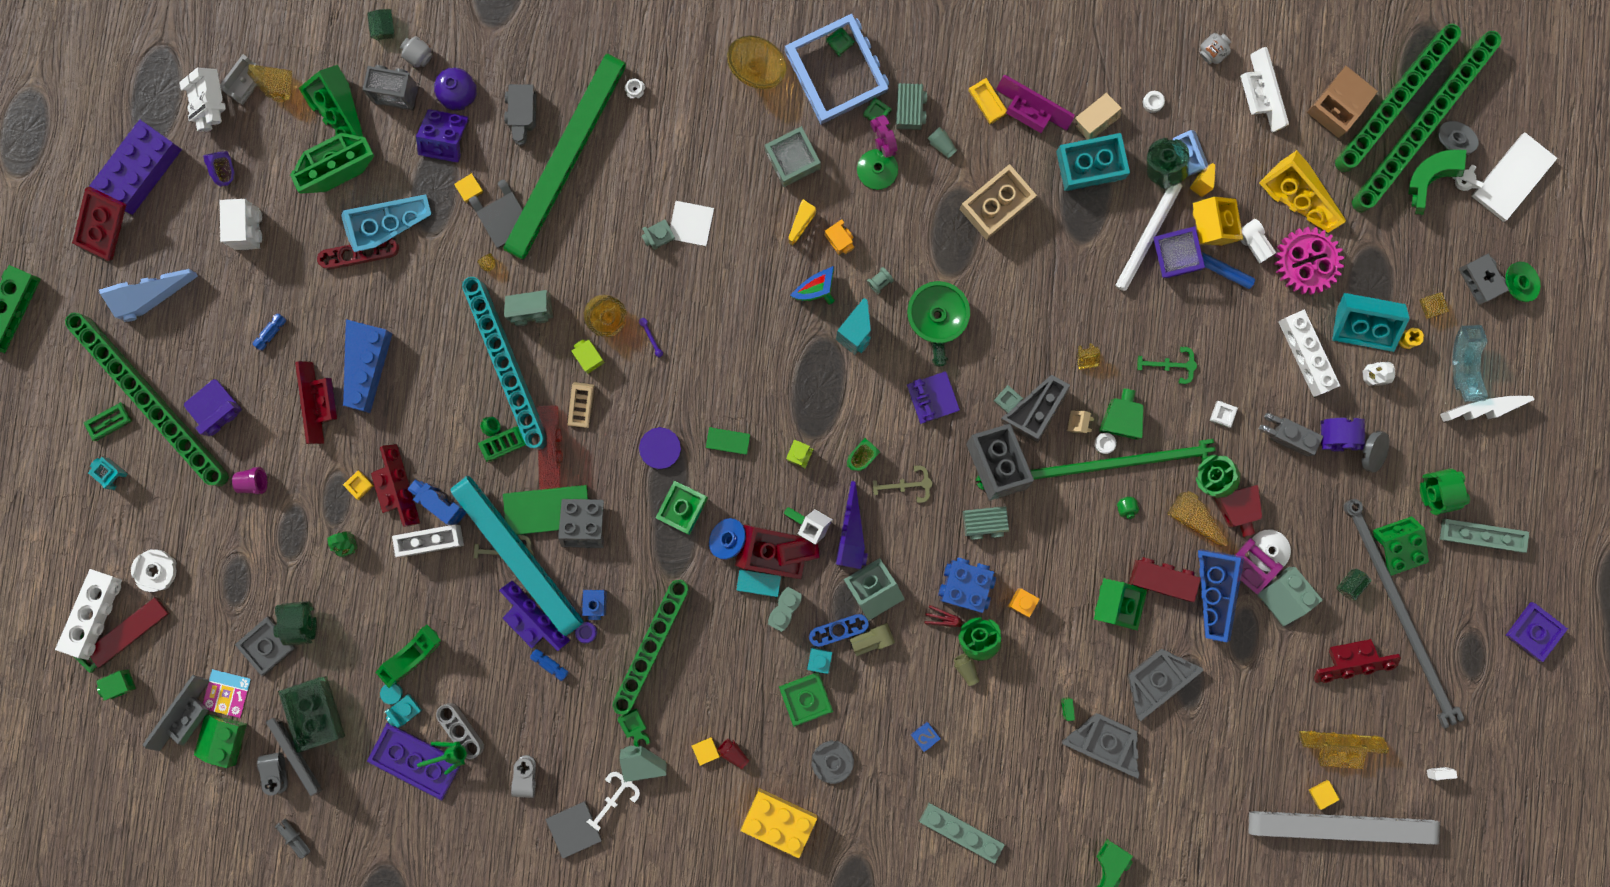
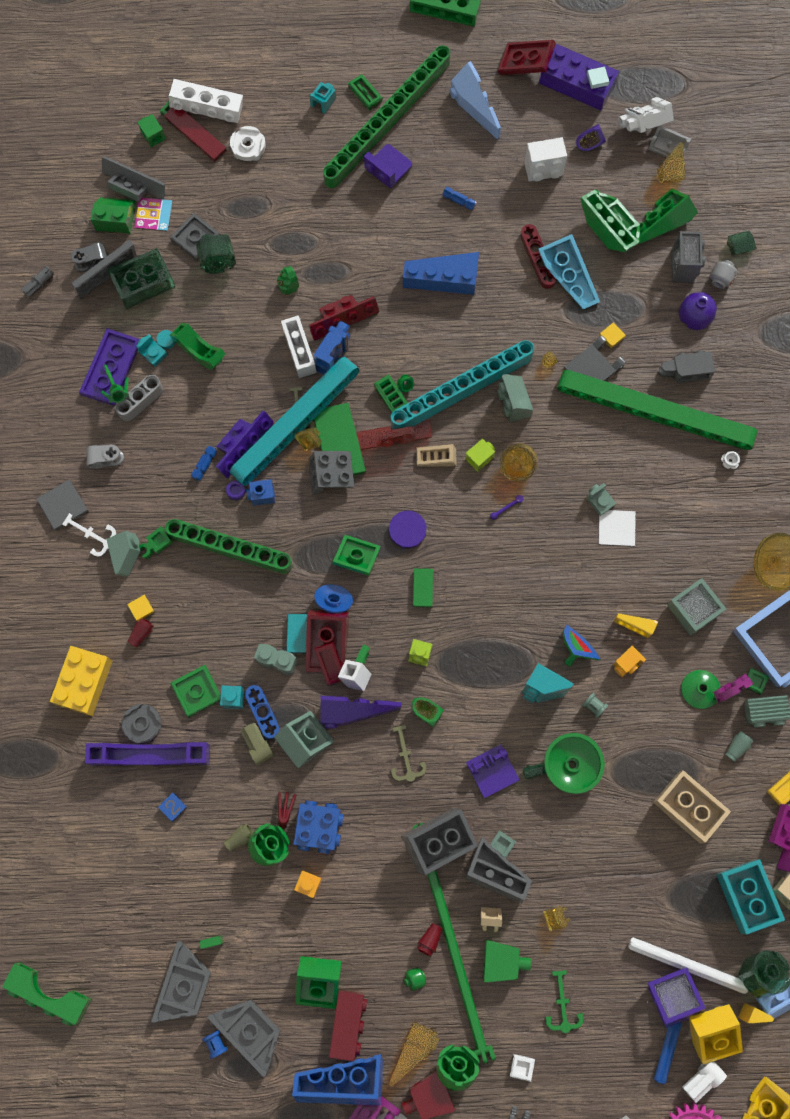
camera: 85 degrees right, 10 degrees down
(146, 145) = (598, 77): none -> light aqua tile
(250, 481) = (331, 203): magenta piece -> none
(316, 401) = (405, 241): dark red bracket -> none
(358, 485) = (339, 287): yellow tile -> none
(441, 135) = (655, 304): dark purple bracket -> none
(540, 542) = (309, 438): none -> clear yellow tile
(868, 757) = (138, 755): none -> dark purple arch
(961, 832) = (86, 854): sand green plate -> none
(985, 521) = (381, 837): sand green brick -> none
(1094, 487) = (429, 941): none -> dark red cone
(1105, 443) = (474, 947): white tile -> none
(1166, 716) = (214, 1044): none -> blue bush

